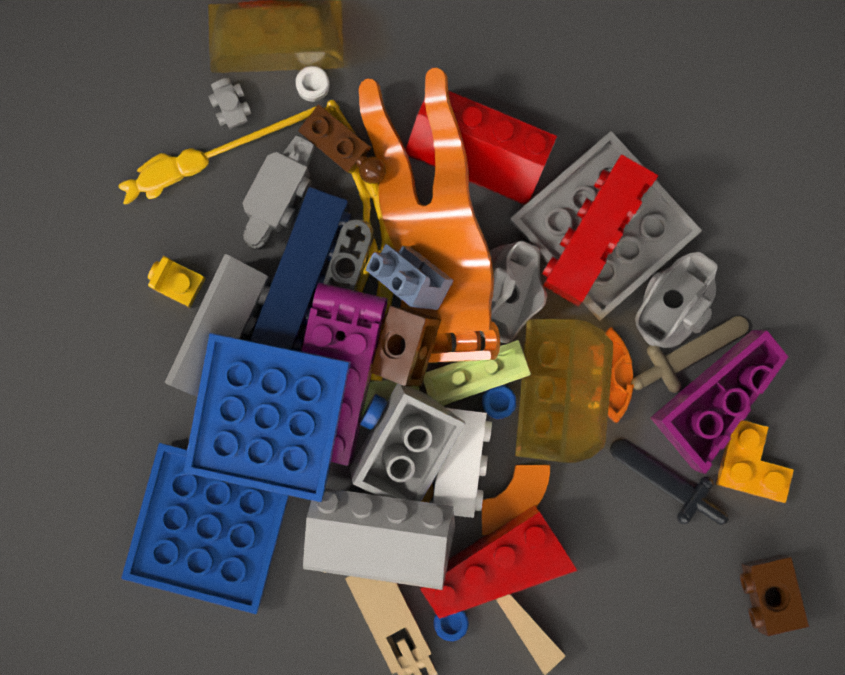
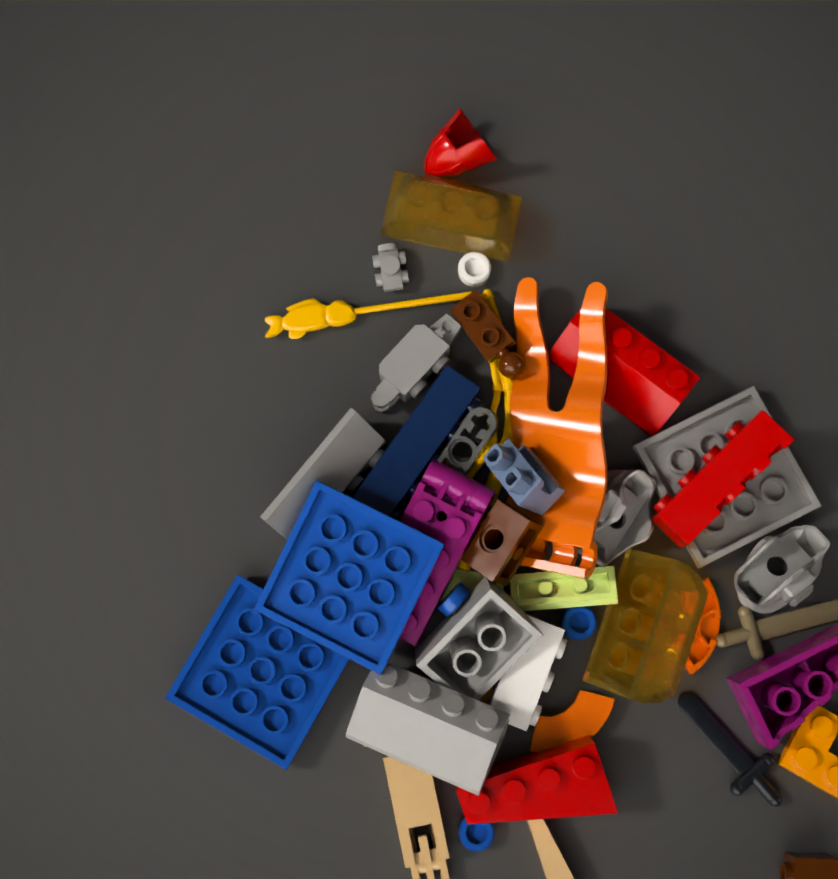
camera: 20 degrees right, 5 degrees down
(175, 281) = (294, 422): yellow bracket -> none

